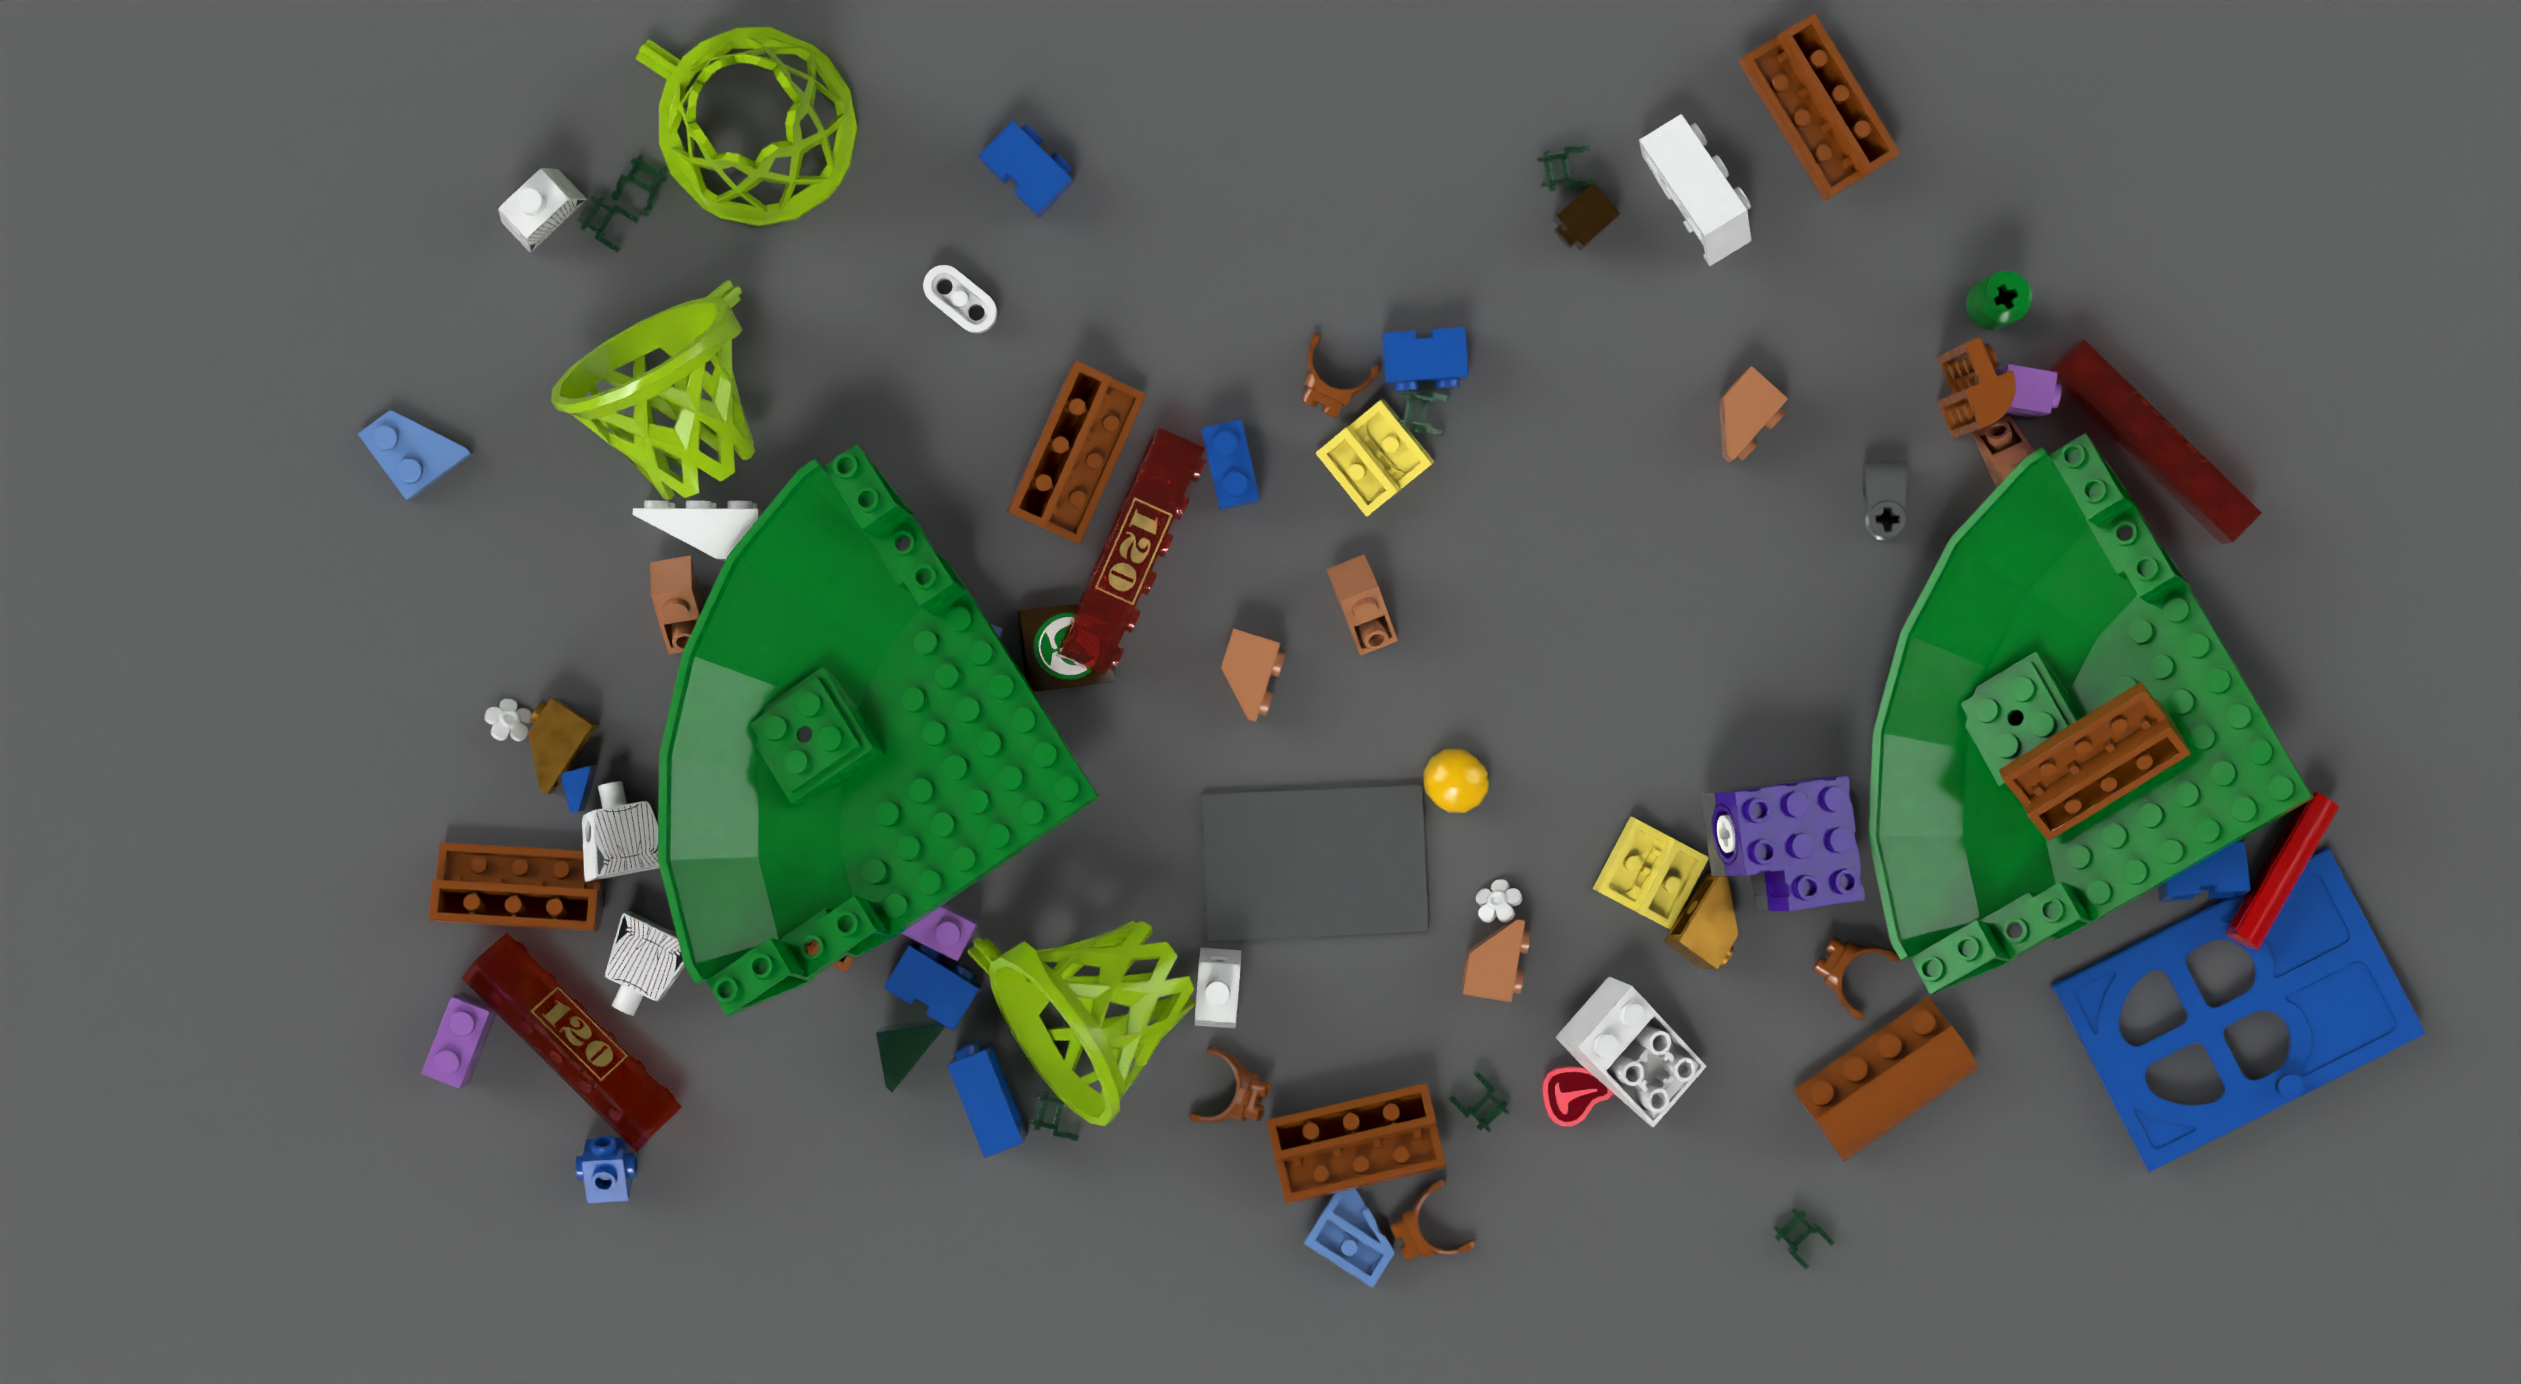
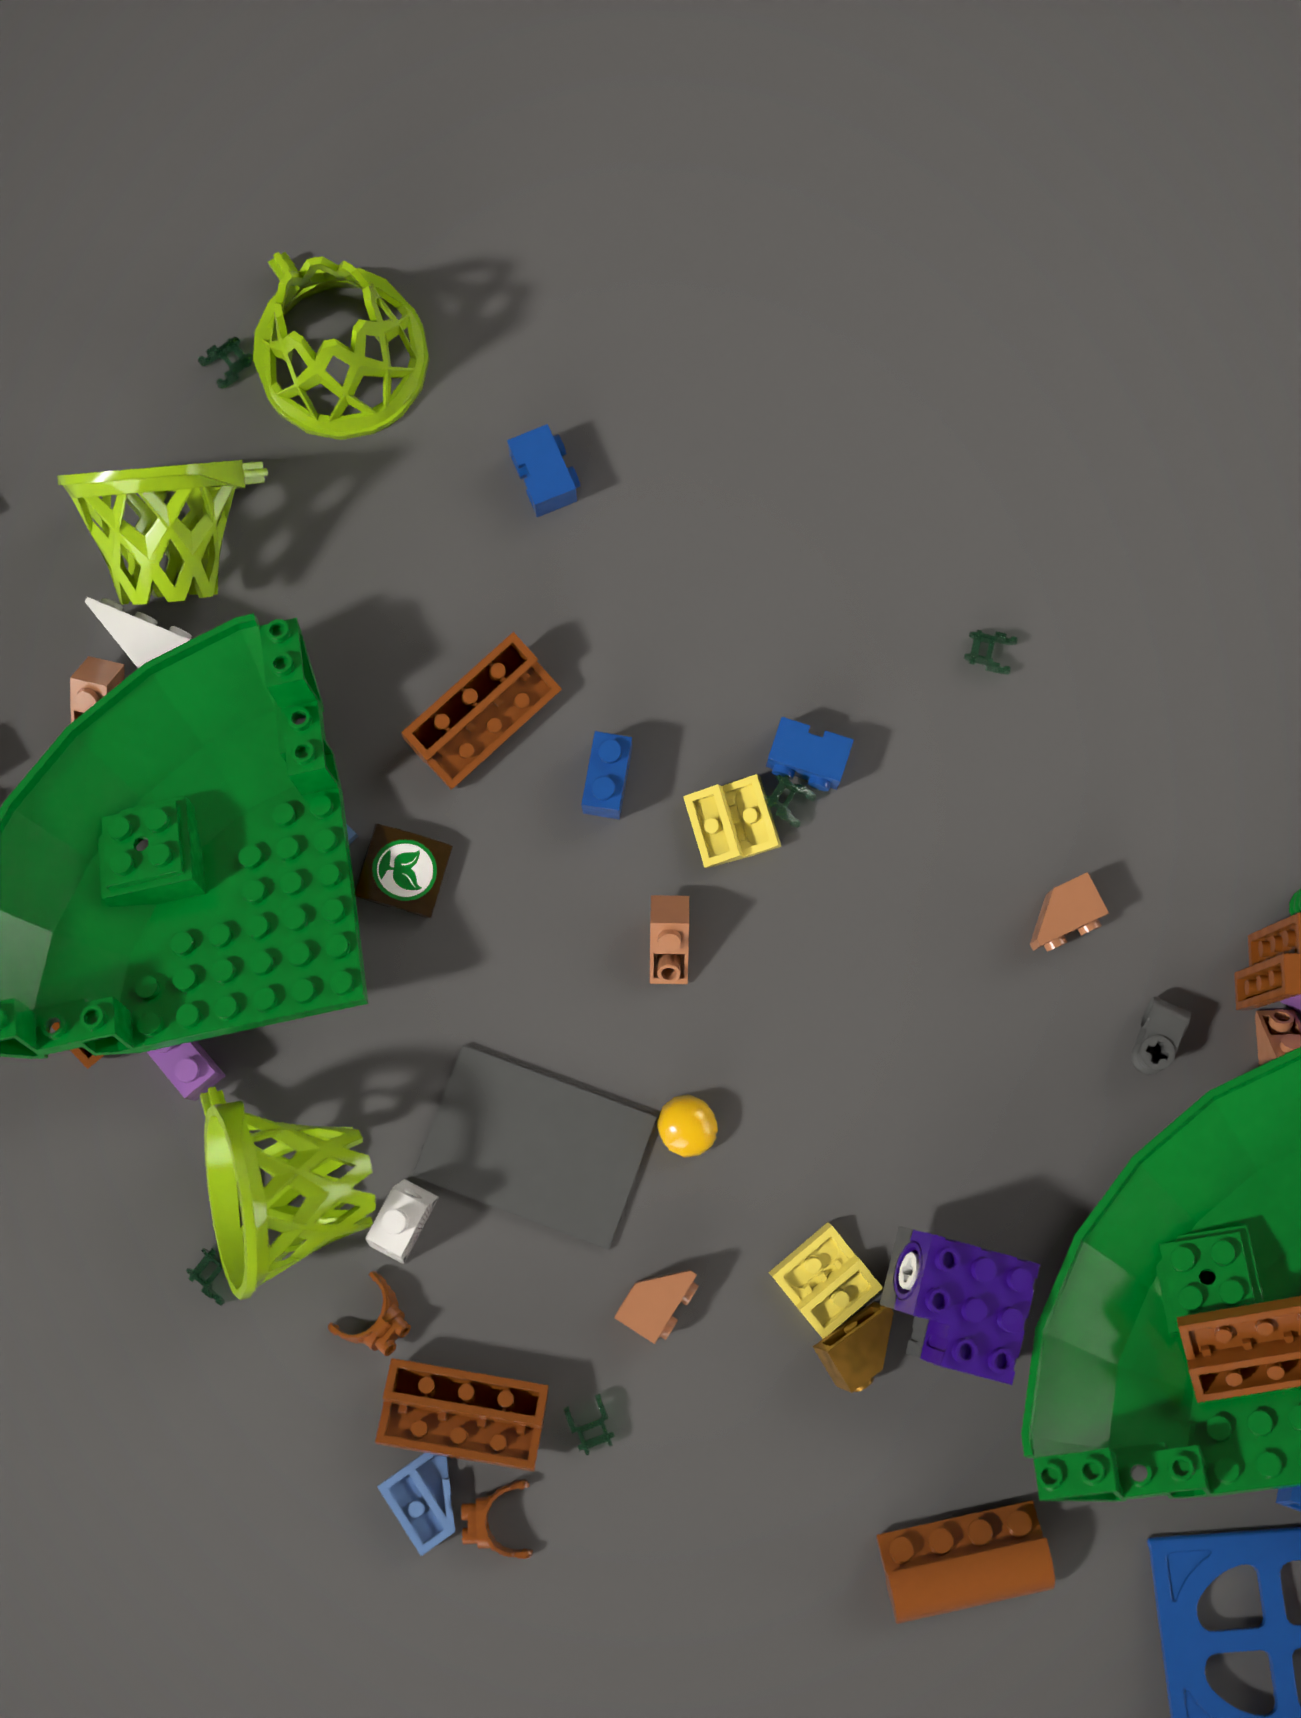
camera: 20 degrees right, 10 degrees down
(540, 206) = (136, 340): white torso -> none
(597, 204) = (175, 385): clear green piece -> none
(903, 1047) = (105, 1156): clear green slope -> none
(933, 982) = (156, 1106): blue brick -> none
(961, 299) = (444, 553): white plate -> none
(987, 1098) = (155, 1232): blue window -> none
(1131, 551) = (489, 812): clear red brick -> none
(1248, 670) = (549, 952): nougat slope -> none
(1327, 396) = (713, 753): dark orange helmet -> none
(1498, 902) = (680, 1248): white plant -> none
(1571, 1094) = (677, 1450): piece -> none
(1585, 218) = (991, 694): dark brown brick -> none
(1631, 1050) = (744, 1435): white slope -> none
(1698, 187) = (1099, 708): white wedge -> none
(1788, 1227) = (826, 1662): clear green piece -> none
(1819, 107) = (1227, 684): dark orange brick -> none
(1835, 963) = (962, 1431): dark orange helmet -> none

